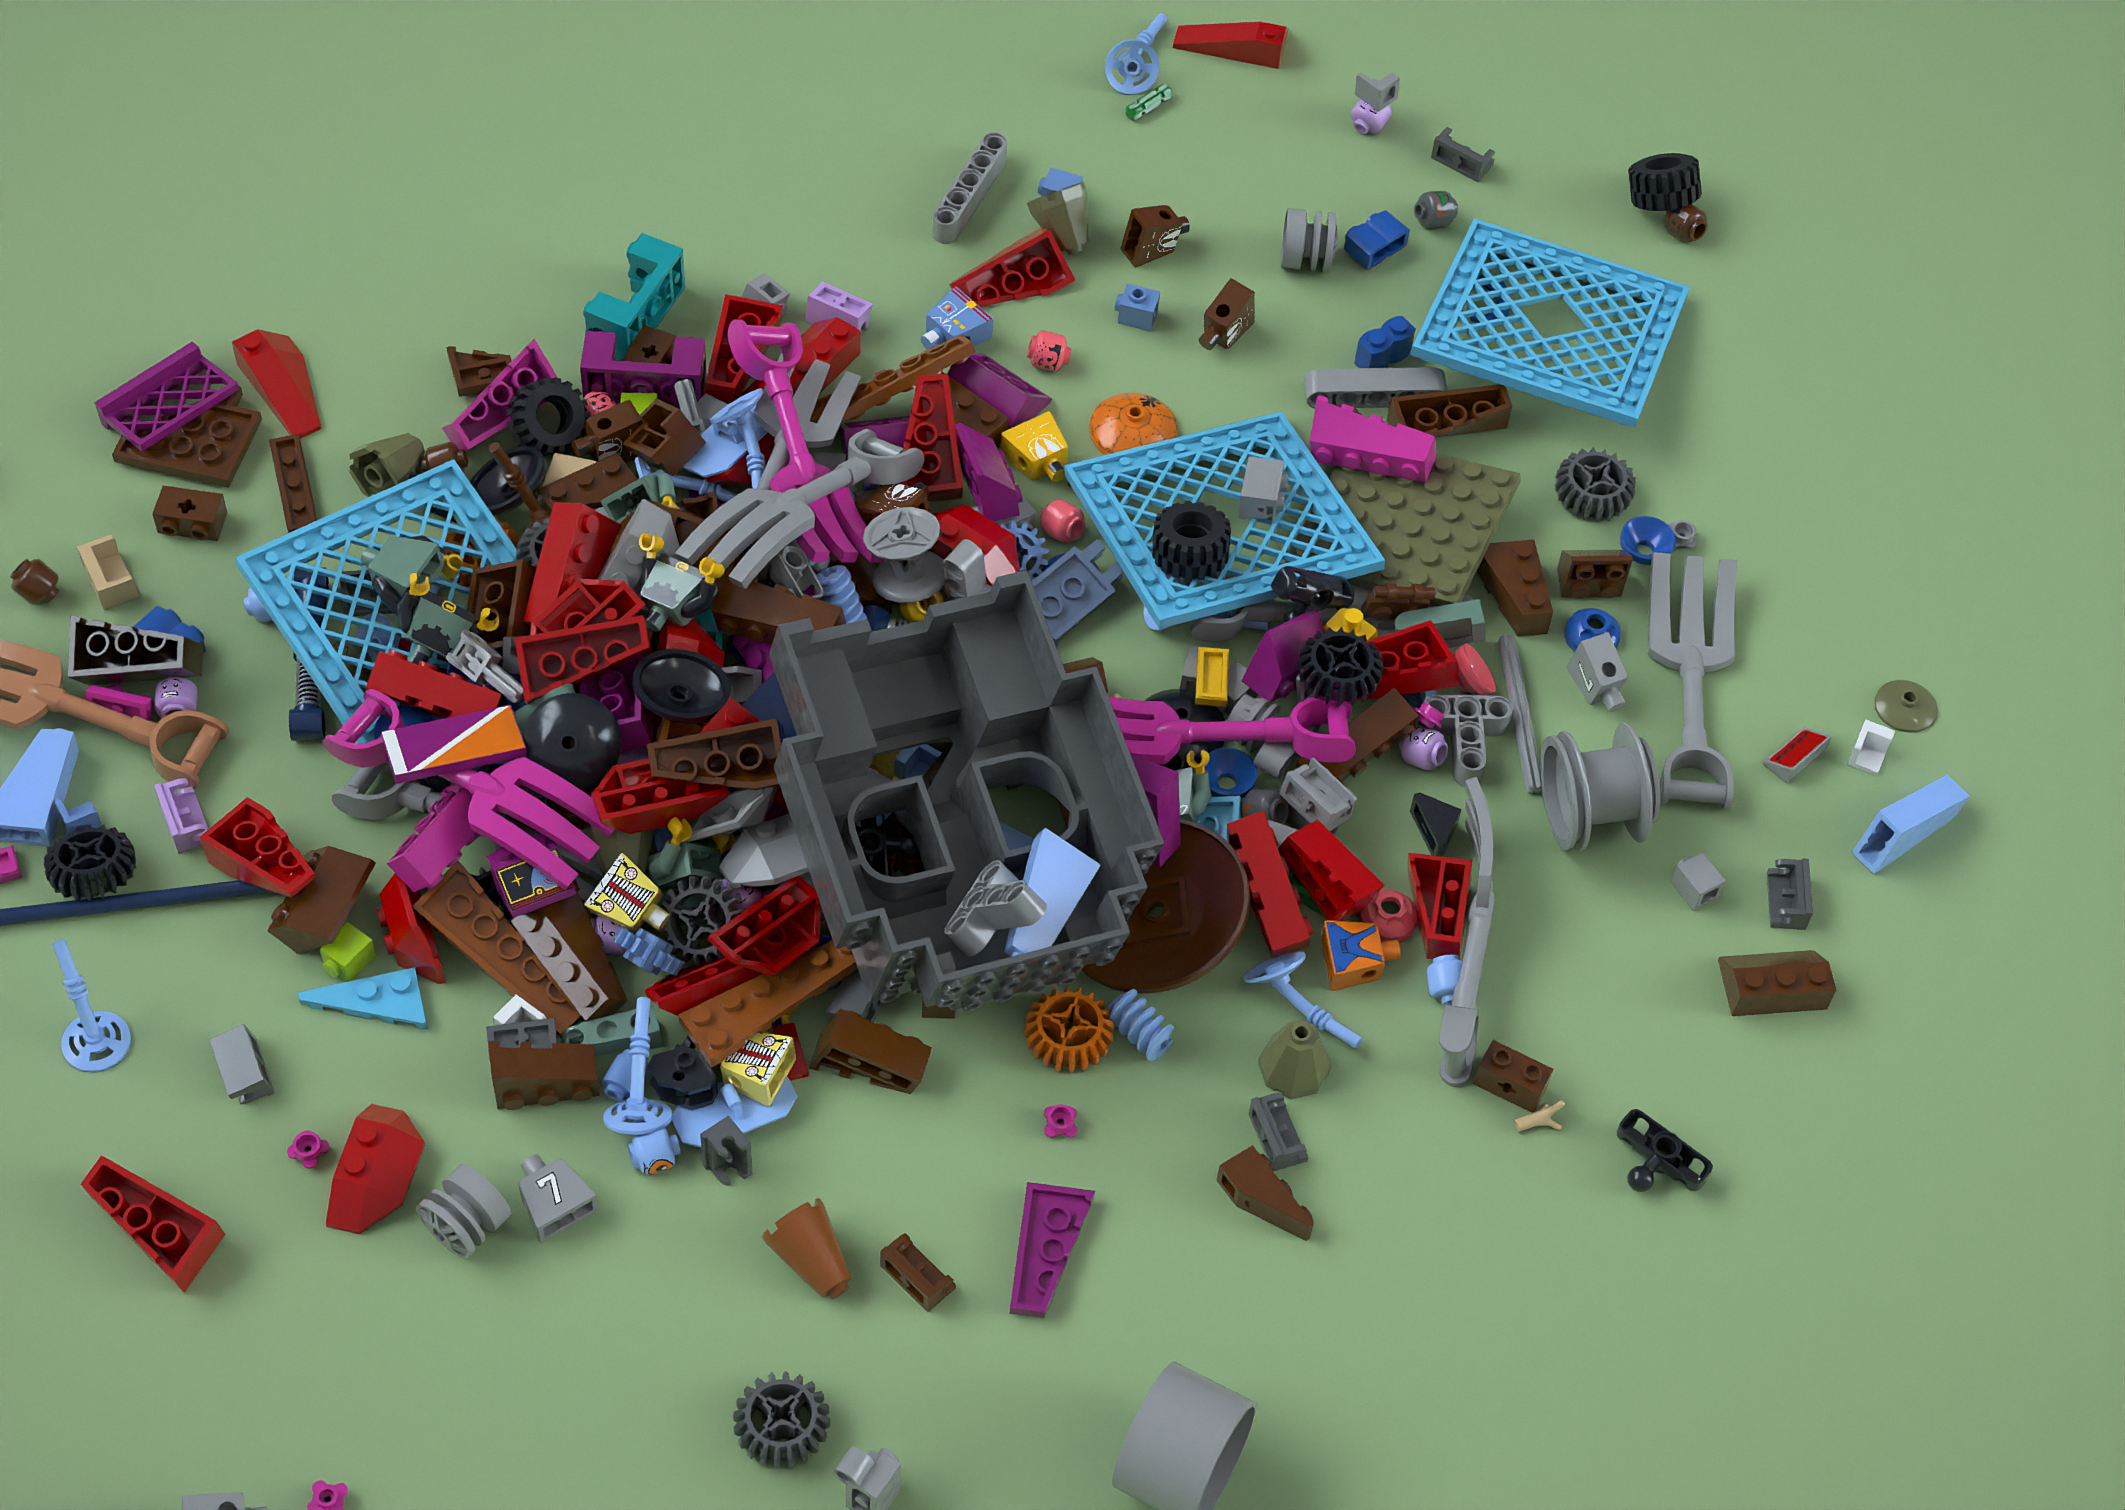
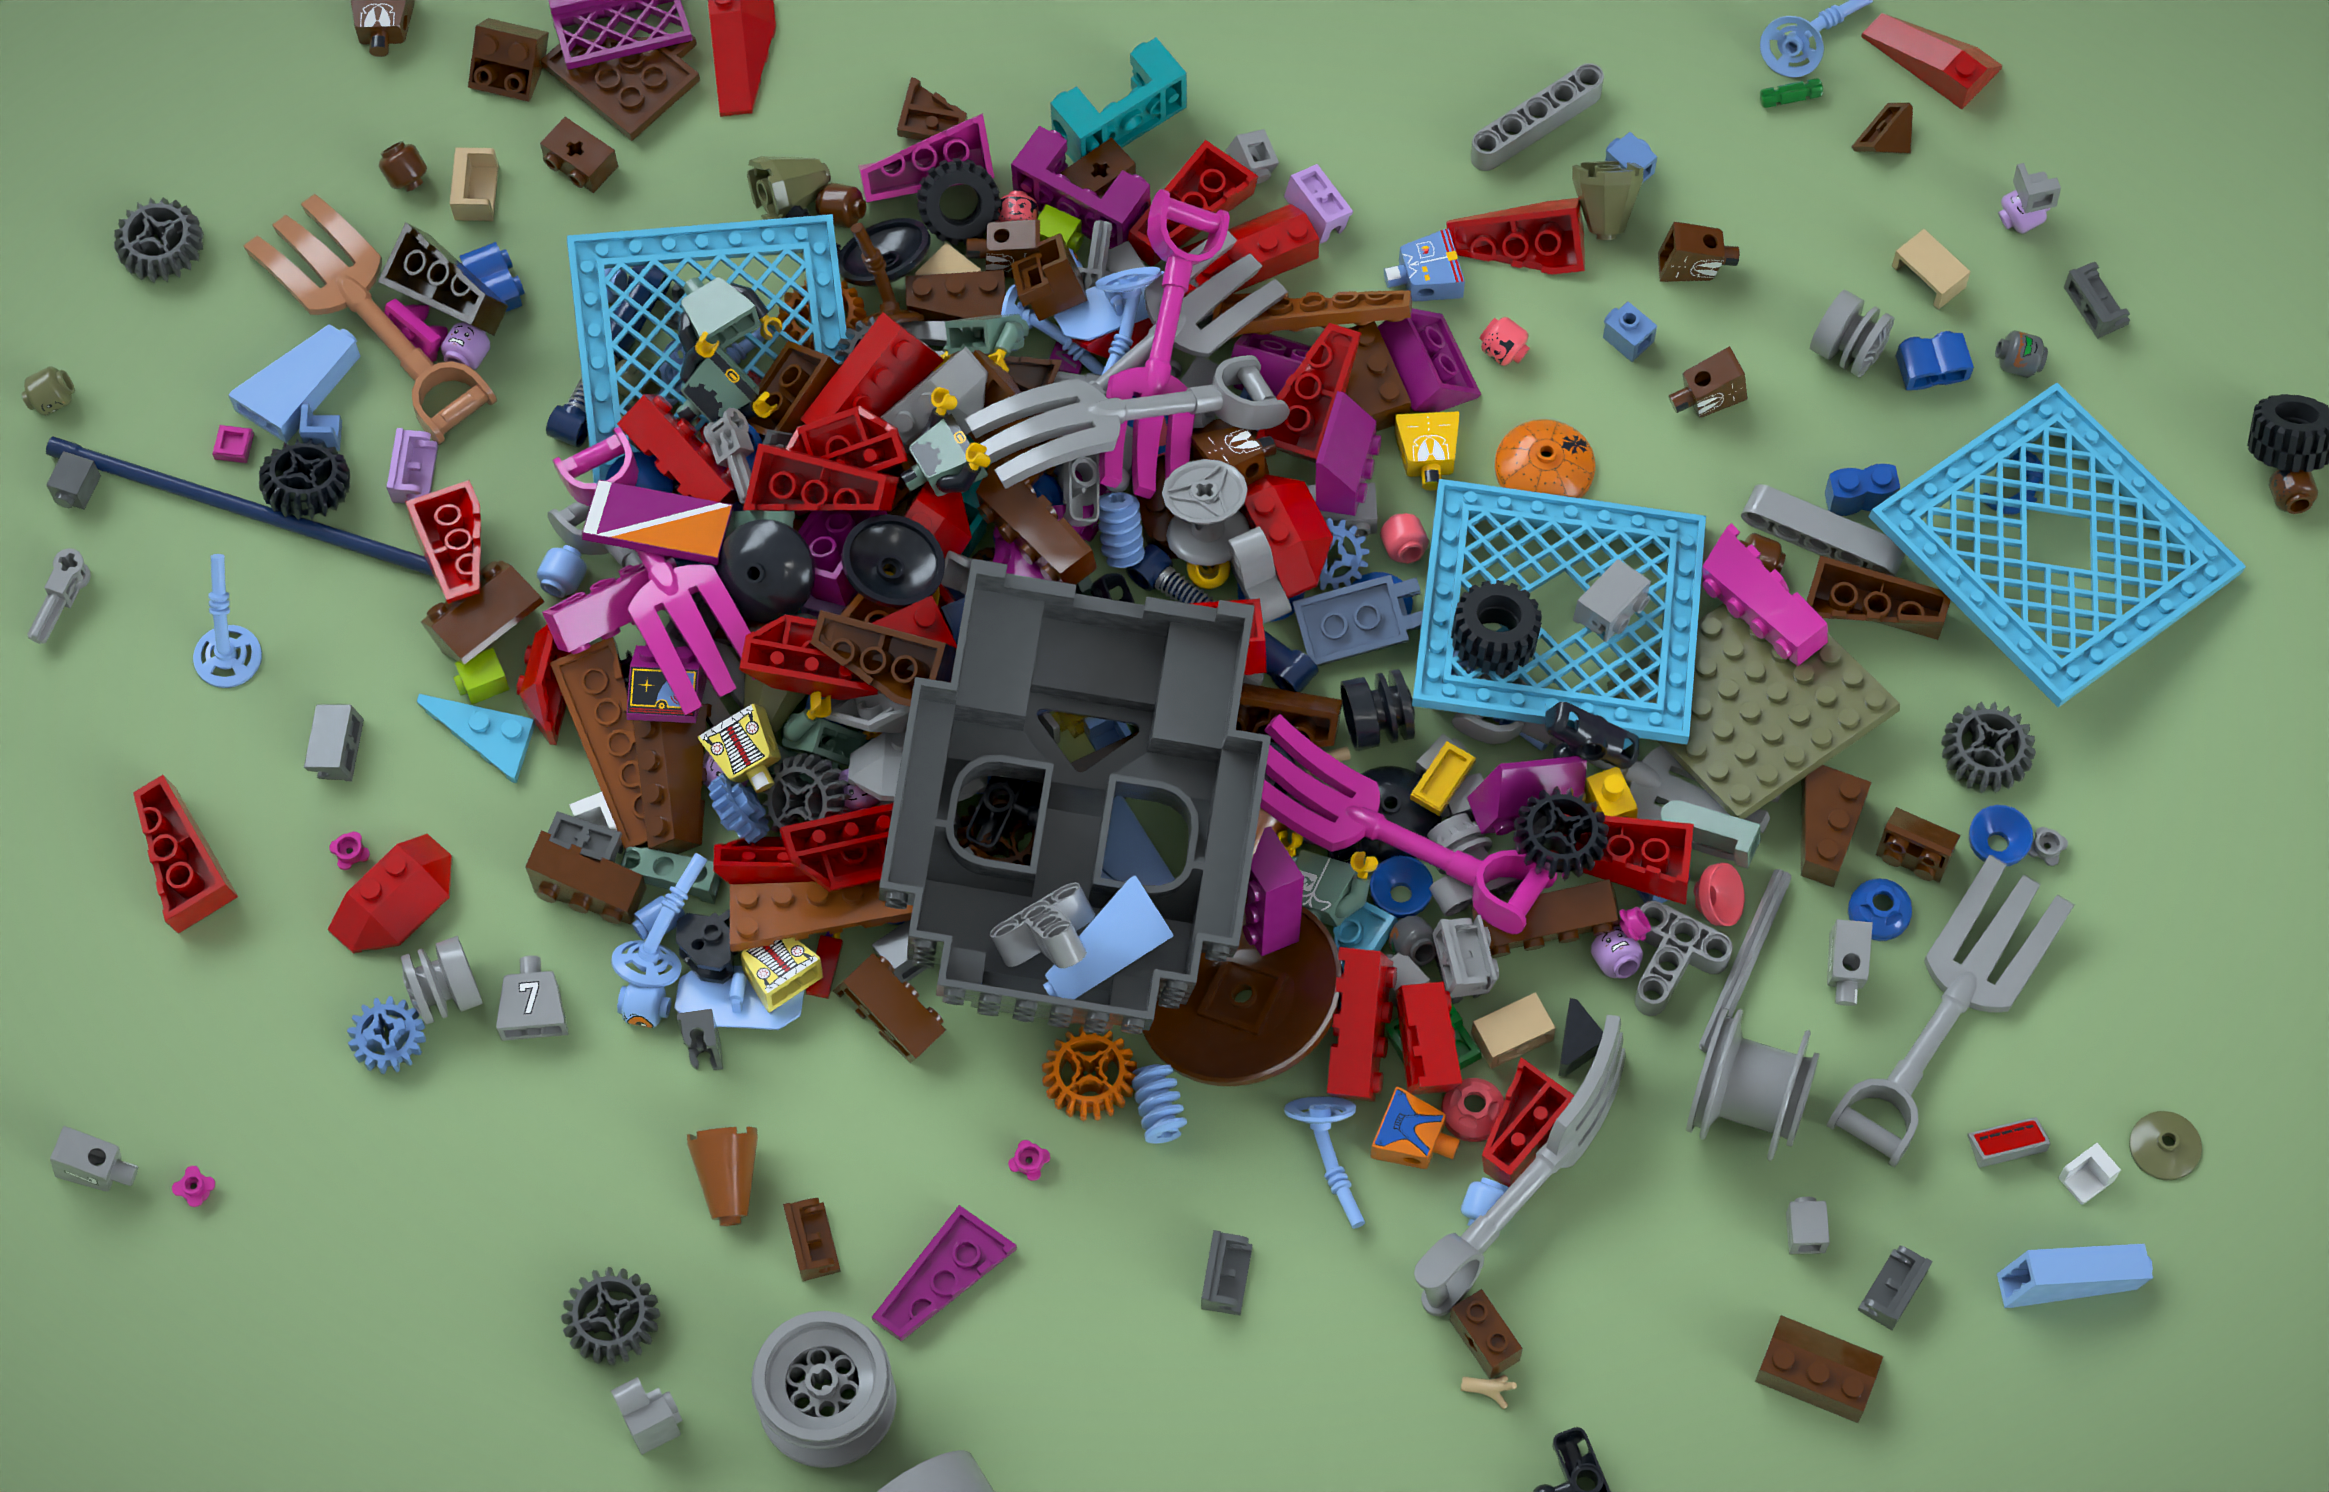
camera: 35 degrees right, 10 degrees up
(81, 466) = (507, 59): none -> reddish brown slope
(293, 481) = (692, 166): reddish brown tile -> none
(371, 837) = (561, 571): none -> light blue head
(432, 1297) = (401, 1030): none -> medium blue gear
(1050, 1360) = (815, 1347): none -> light grey wheel
(1128, 649) = (1378, 709): none -> black wheel
(1236, 100) = (1888, 131): none -> reddish brown slope
(1257, 1190) = (1167, 1319): reddish brown slope -> none
(1295, 1060) = (1285, 1214): olive cone -> none
(1333, 172) = (1934, 266): none -> tan panel
(1384, 839) = (1513, 1030): none -> tan panel
(1391, 600) = (1666, 782): reddish brown plate -> none

